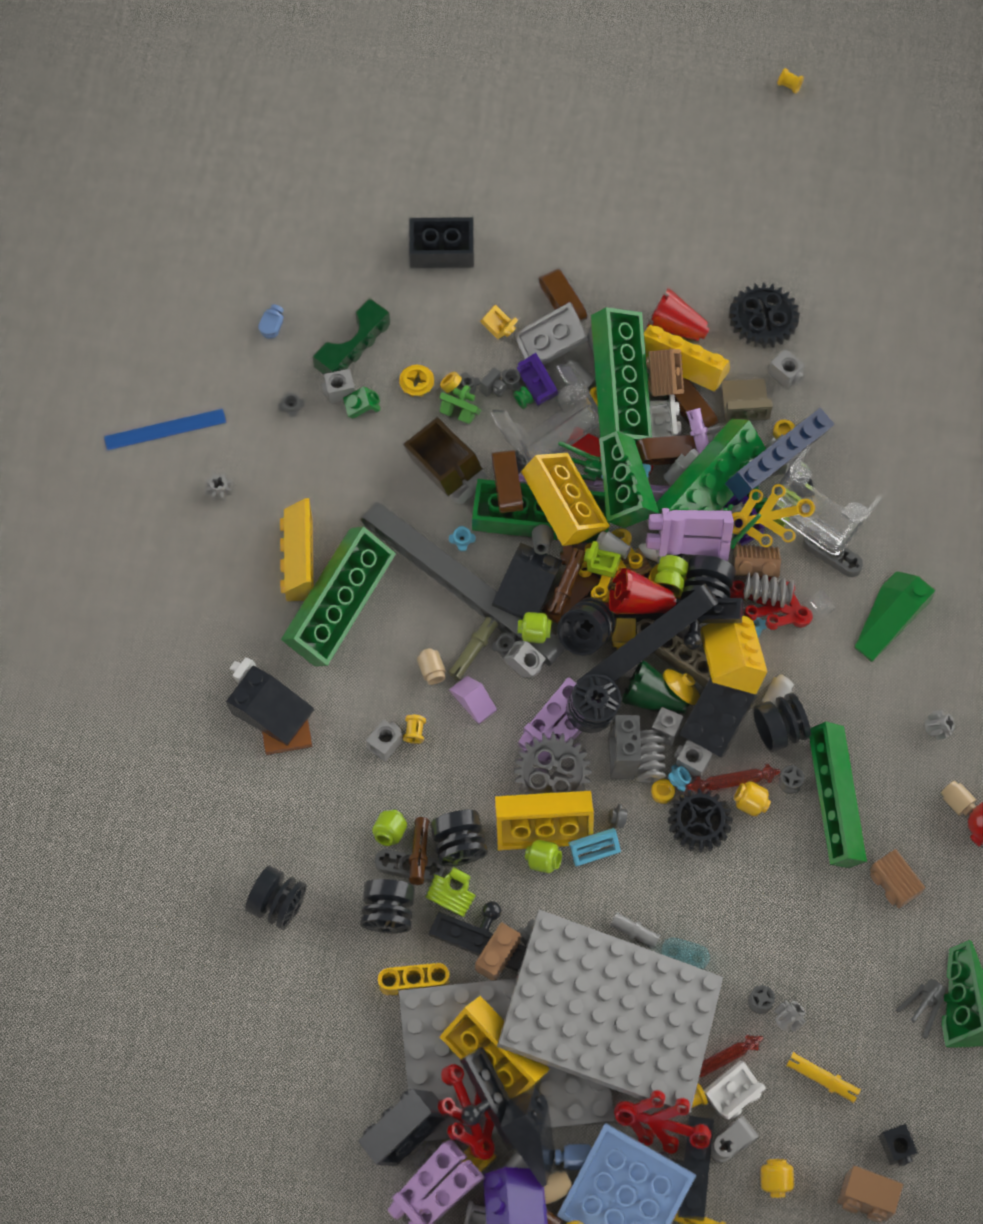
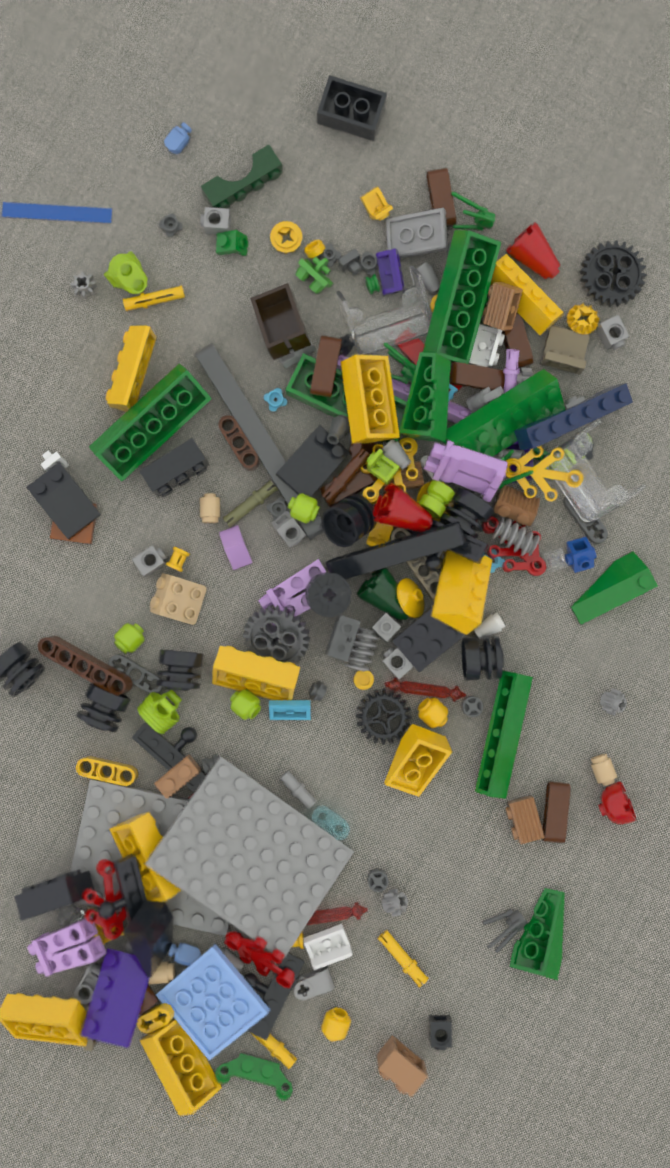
camera: 20 degrees right, 20 degrees up
(264, 461) = (126, 273): none -> lime piece
(274, 491) = (177, 293): none -> yellow pin
(340, 864) = (75, 665): none -> reddish brown beam
(381, 634) = (175, 468): none -> black brick
(418, 870) = (135, 689): reddish brown pin -> none
(428, 769) = (177, 599): none -> tan bracket
(435, 582) = (234, 434): none -> reddish brown beam
(608, 300) = (482, 218): none -> green plant
(679, 777) = (380, 674): medium azure plate -> none
(753, 372) = (582, 326): none -> yellow gear
(755, 852) = (417, 760): none -> yellow slope
(782, 427) = (587, 388): yellow tile -> none
(843, 588) = (580, 554): none -> blue brick
(927, 860) = (556, 812): none -> reddish brown beam

